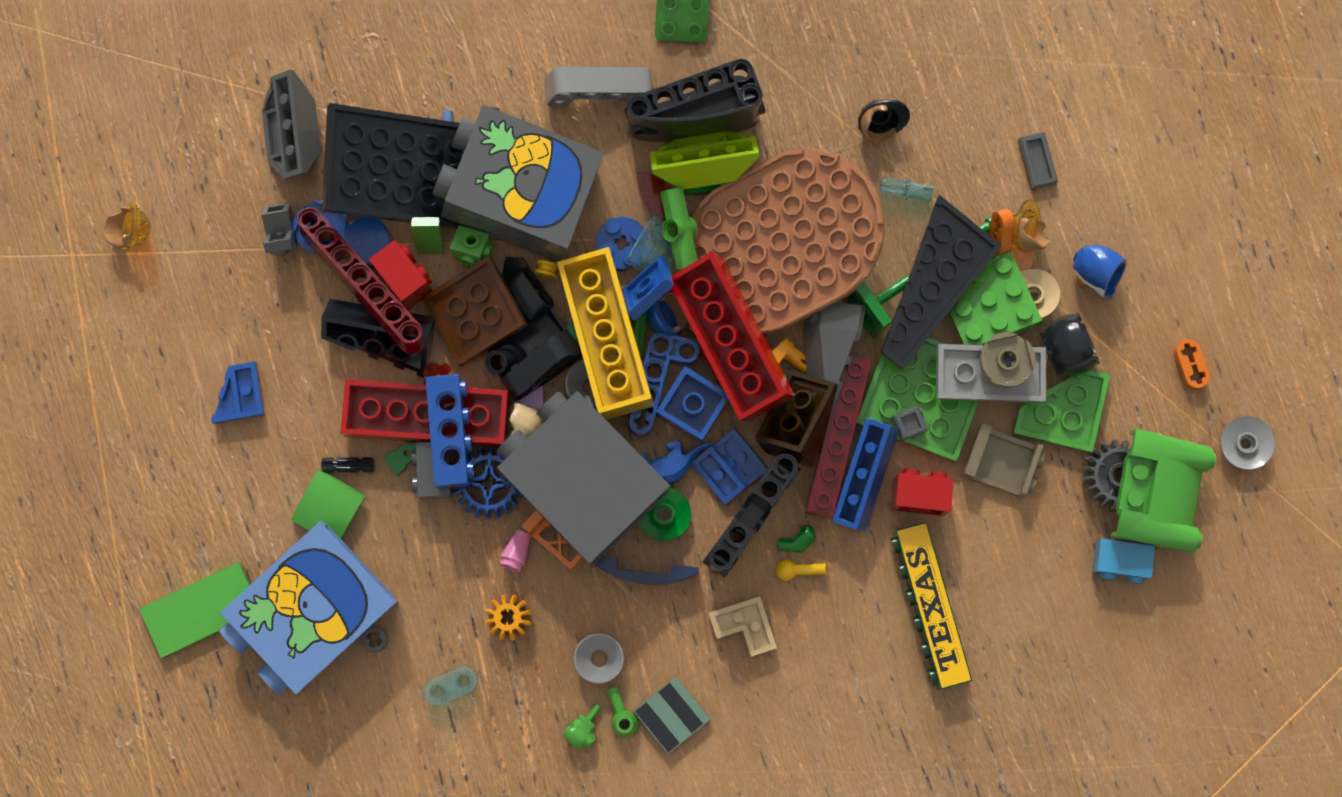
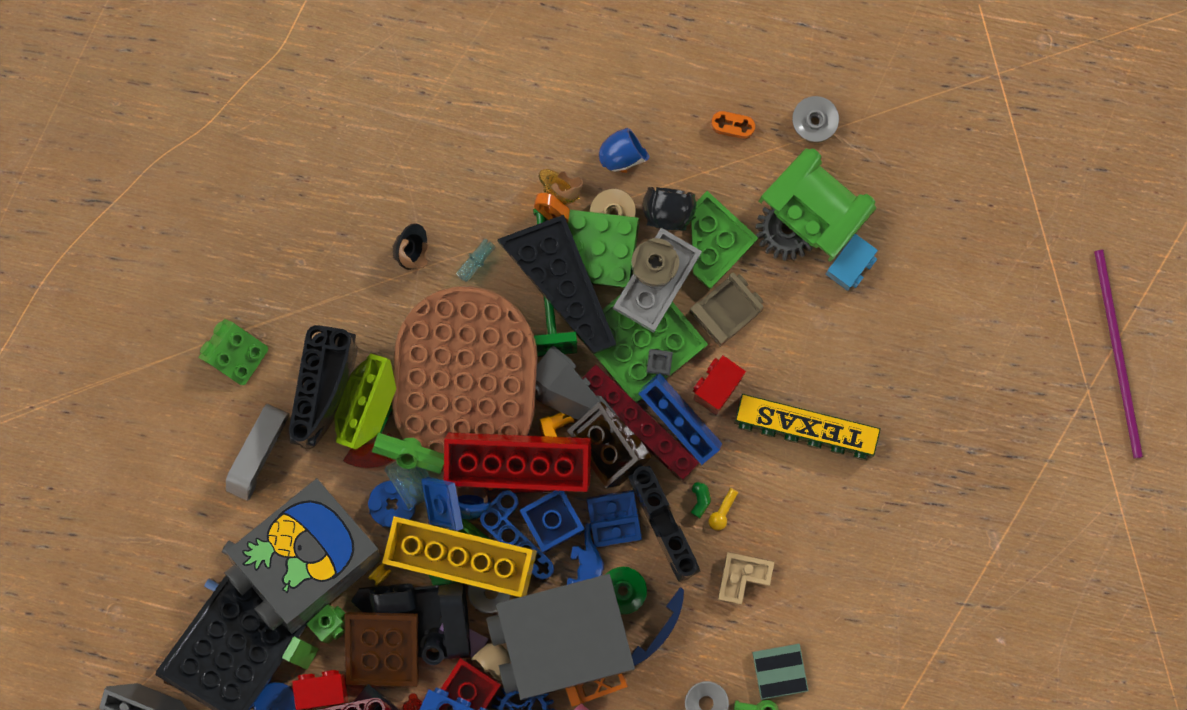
camera: 60 degrees left, 0 degrees up
(1037, 161) = (510, 148): dark grey tile -> none

